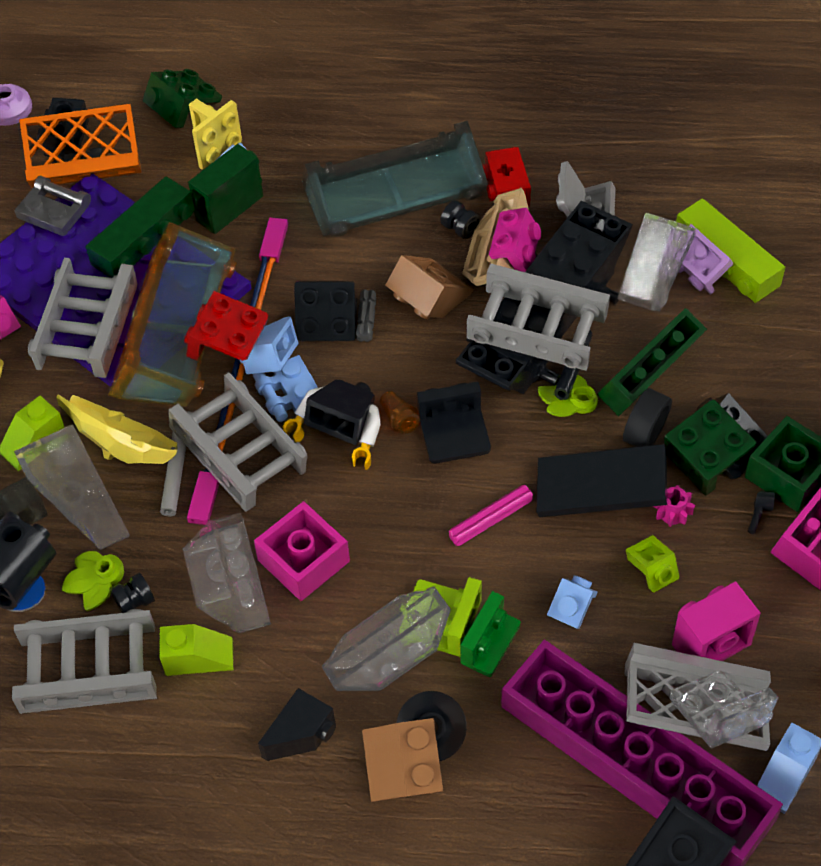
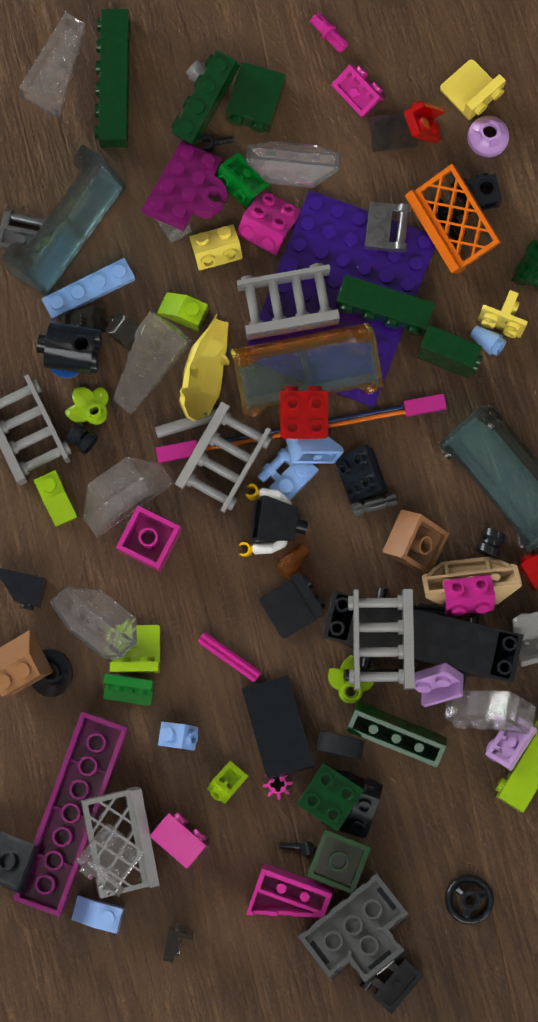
camera: 70 degrees right, 25 degrees up
(619, 288) = (439, 684): none -> lavender bracket

